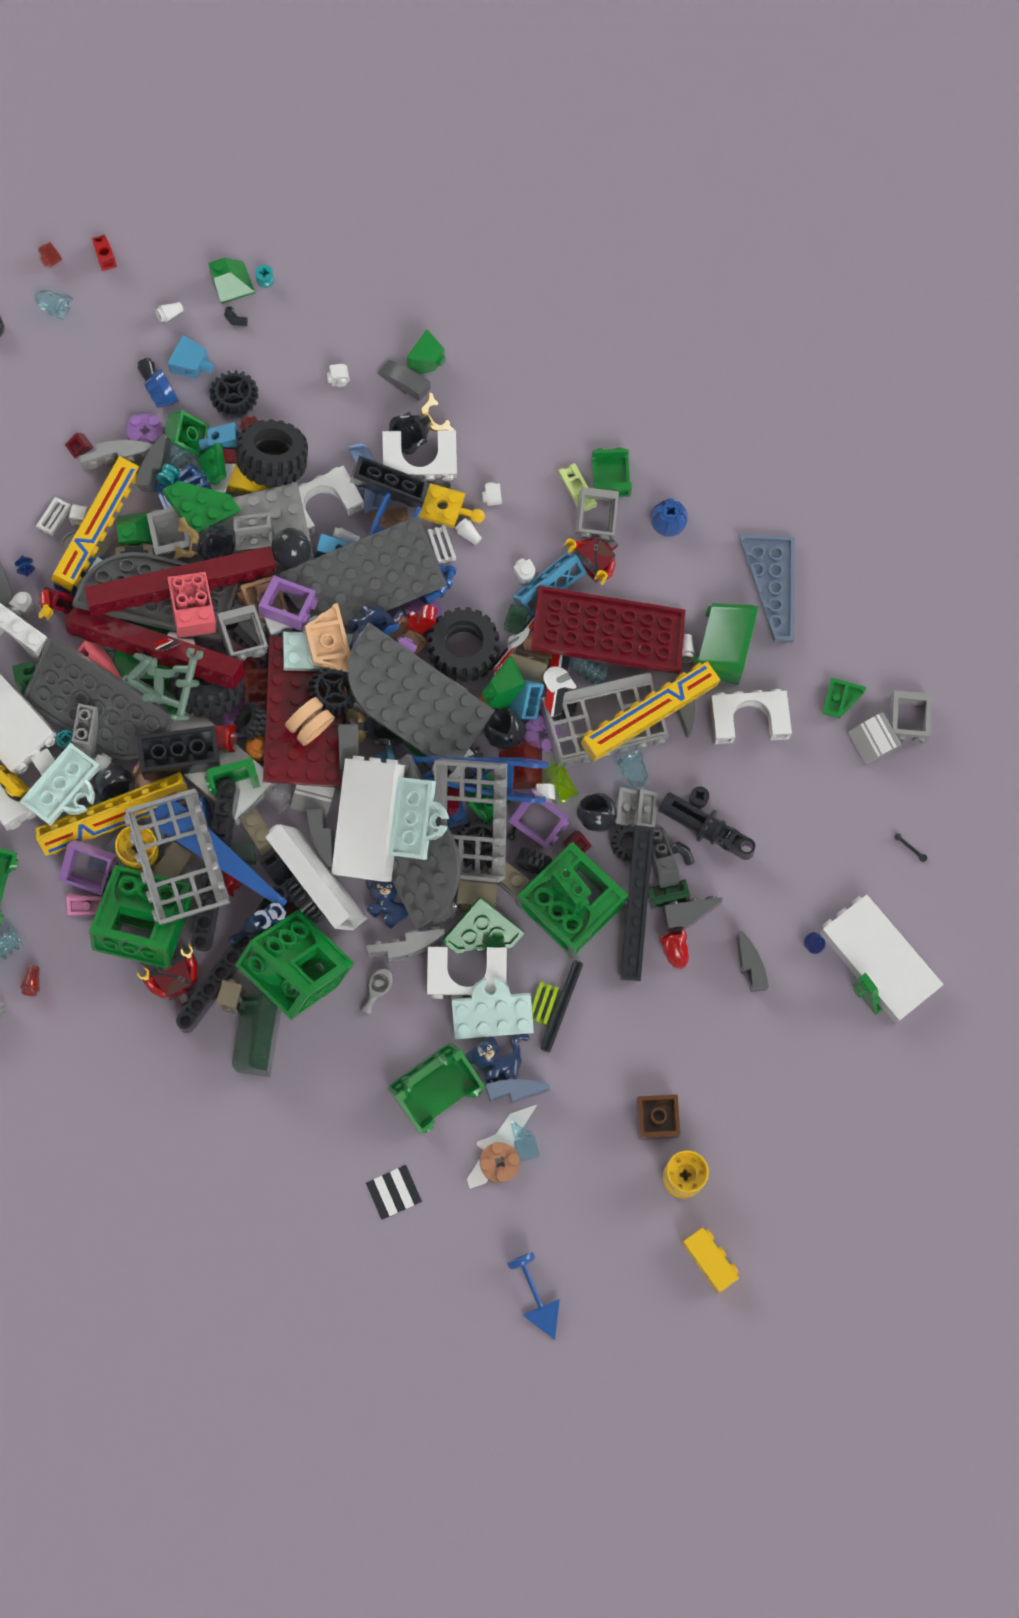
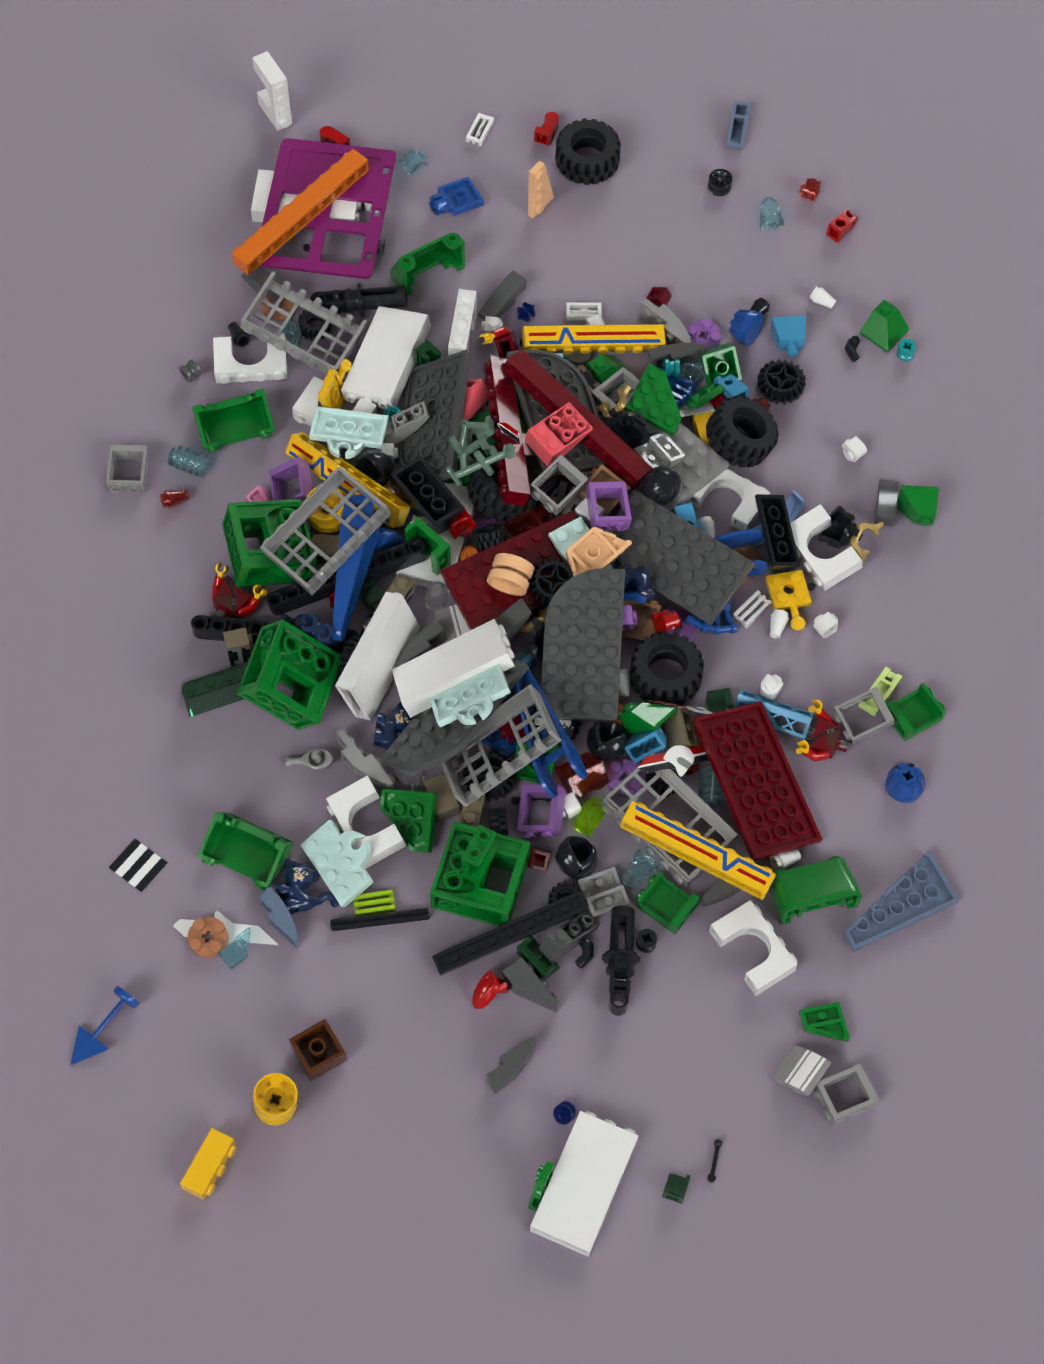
camera: 65 degrees right, 10 degrees down
(674, 762) = (666, 903): none -> green panel
(919, 888) = (676, 1188): none -> clear green panel

